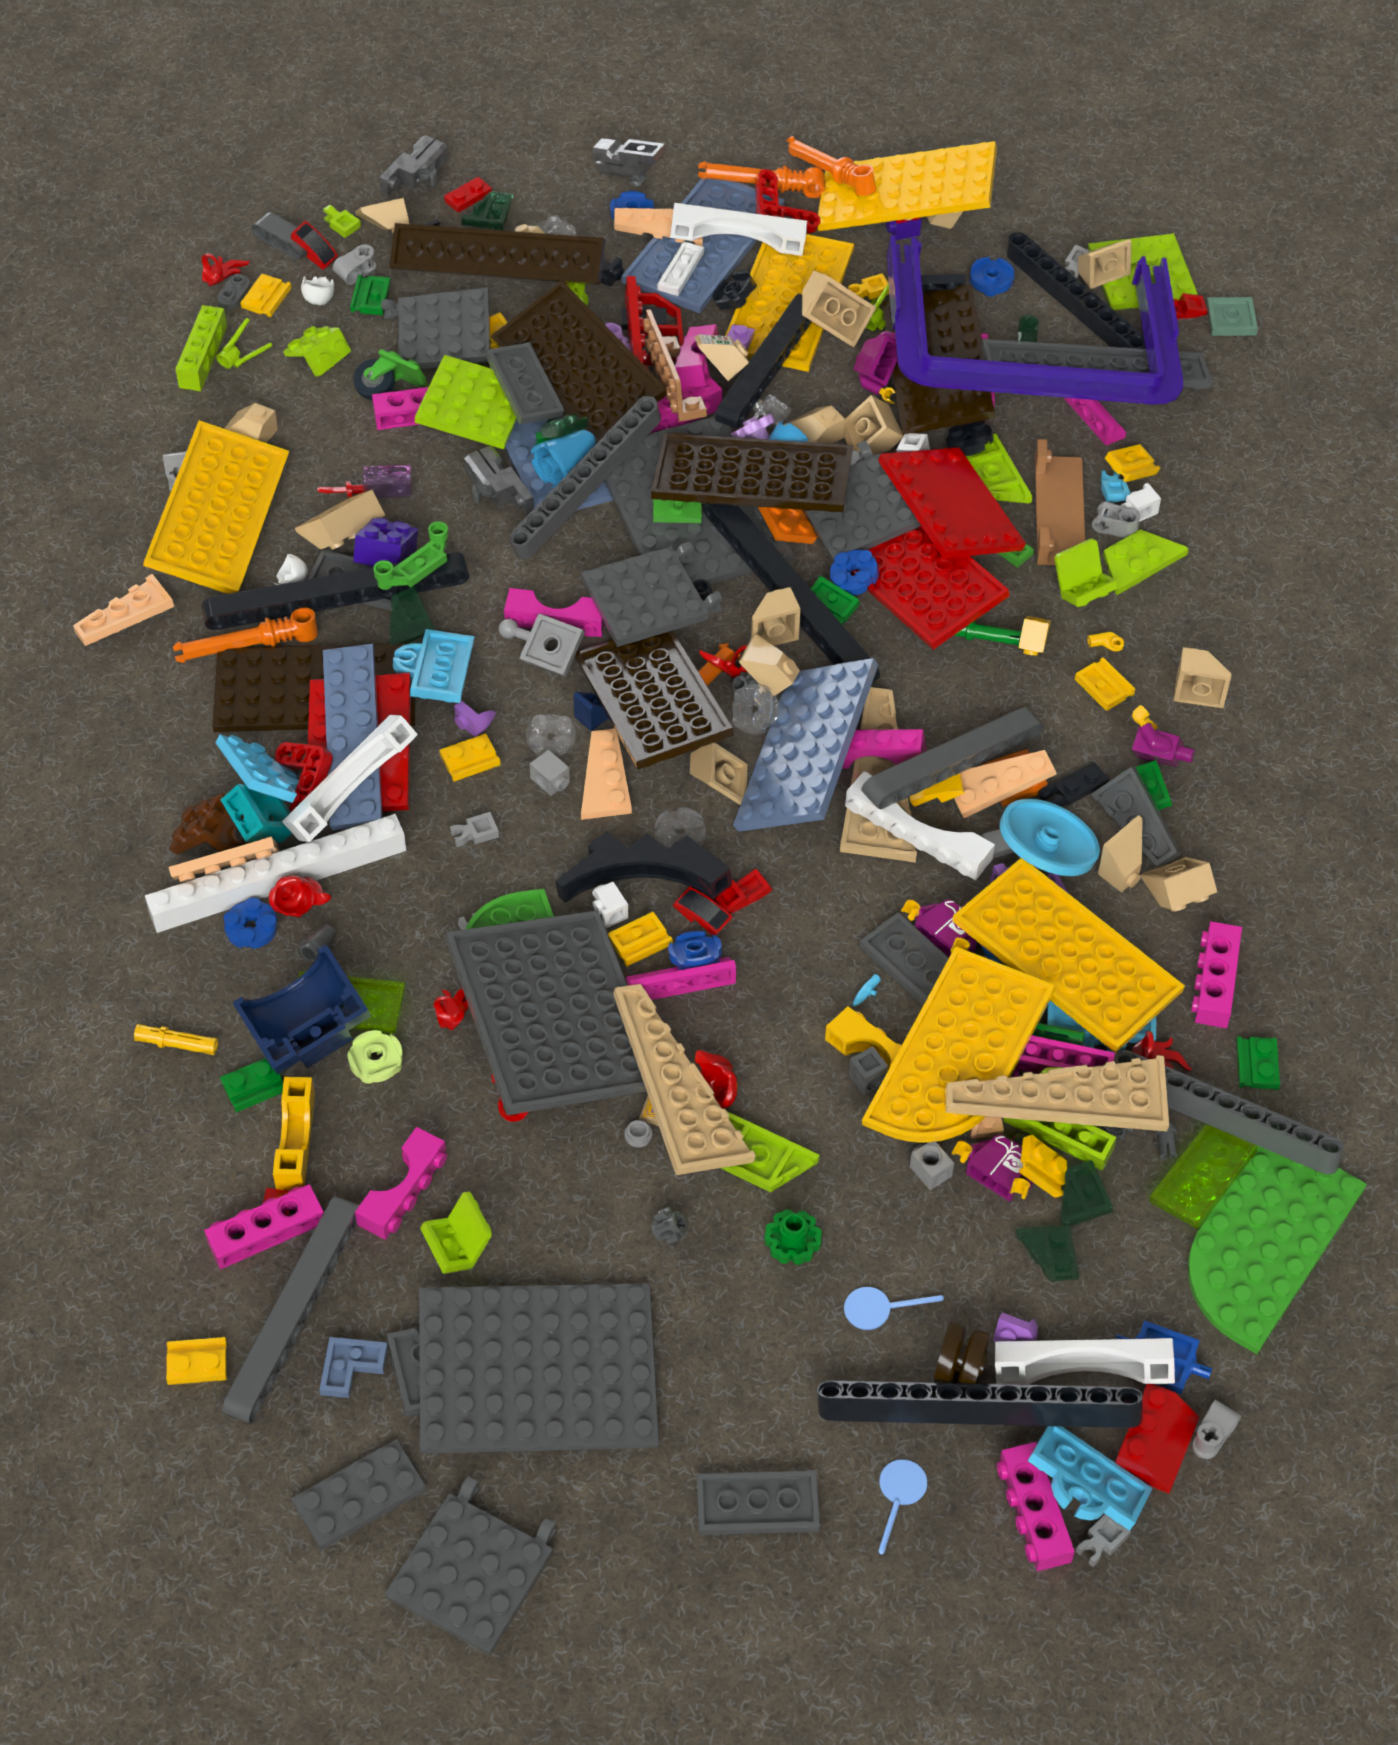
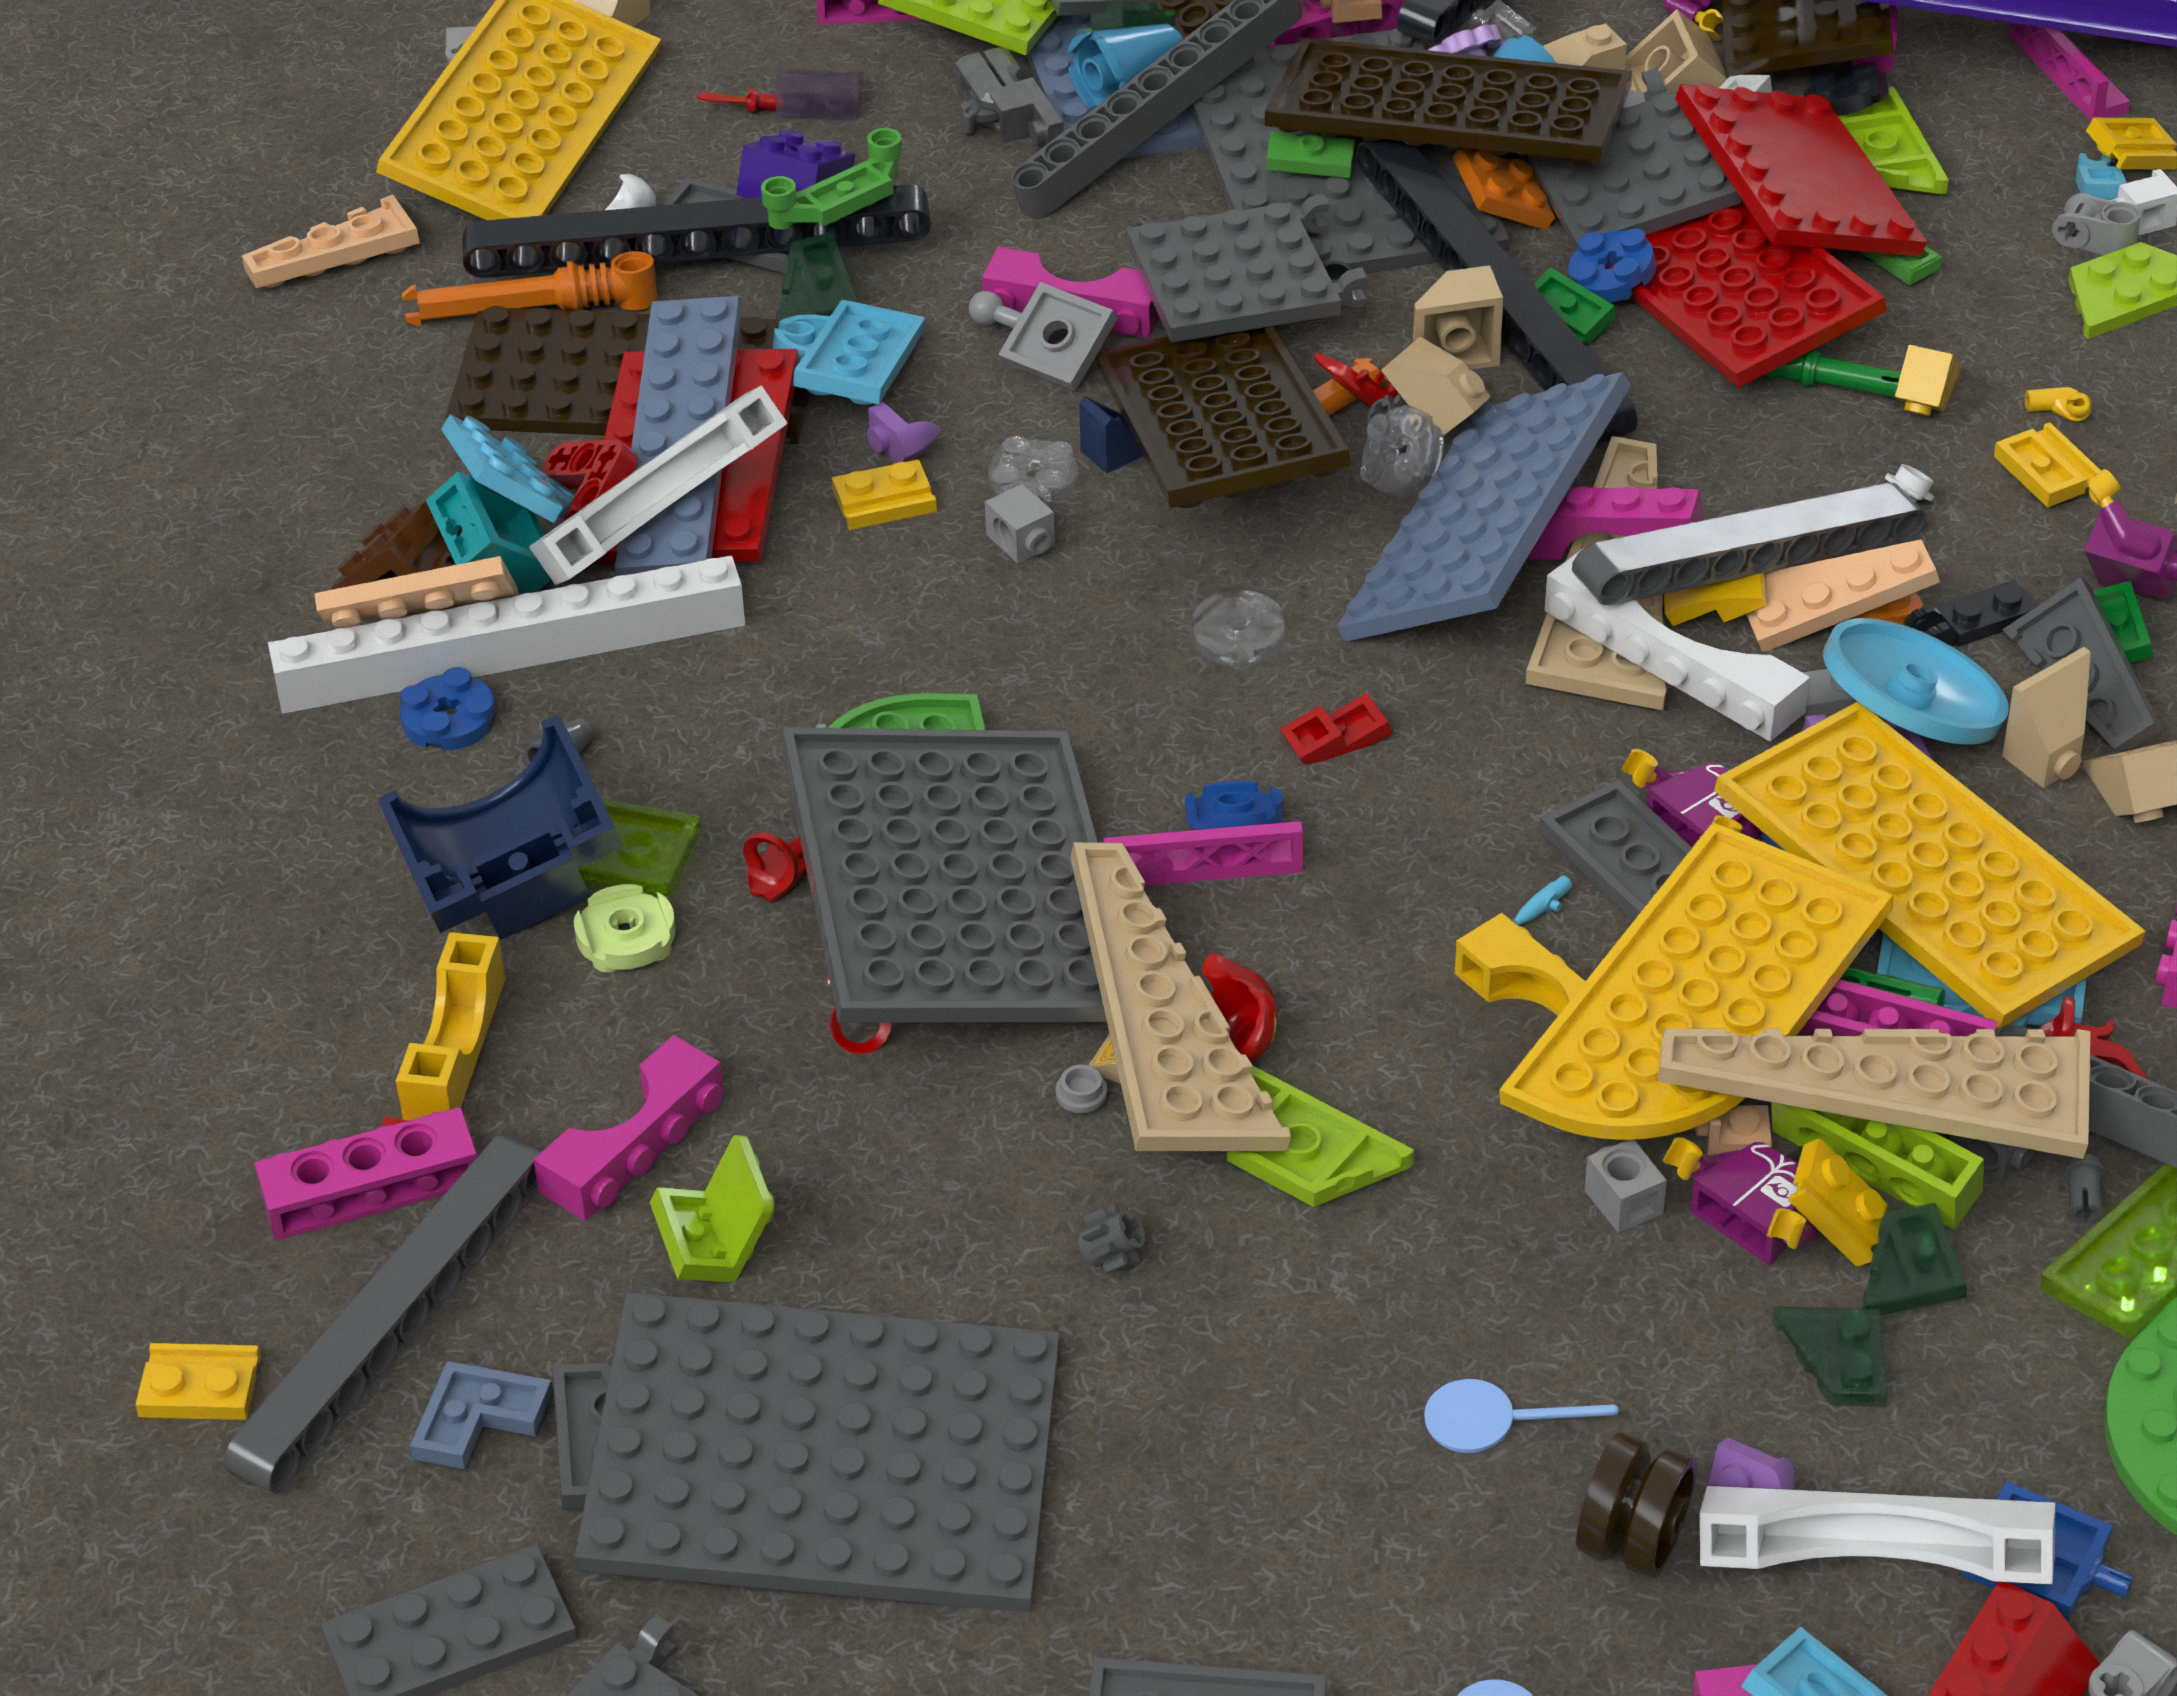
camera: 10 degrees right, 10 degrees down
(165, 1037) = (257, 867): yellow pin -> none
(252, 1084) = (393, 954): green plate -> none
(297, 895) = (534, 668): red hair -> none
(341, 521) = (717, 136): tan slope -> none
(477, 828) = (876, 598): light grey plate -> none
(605, 779) = (1119, 542): light nougat wing -> none
(610, 904) = (1093, 728): white brick -> none
(639, 939) = (1136, 785): yellow plate -> none
(645, 858) = (1169, 660): black arch -> none
(705, 911) = (1259, 749): slope -> none
(720, 771) = (1324, 541): tan slope -> none
(793, 1237) = (1343, 1280): green plant -> none
(867, 1070) = (1521, 1016): dark grey brick -> none
(980, 1404) = (1666, 1584): black beam -> none
(1033, 703) = (1912, 482): none -> white plate
(1058, 503) = (1995, 203): medium nougat bracket -> none
(1081, 574) = (2024, 293): lime bracket -> none

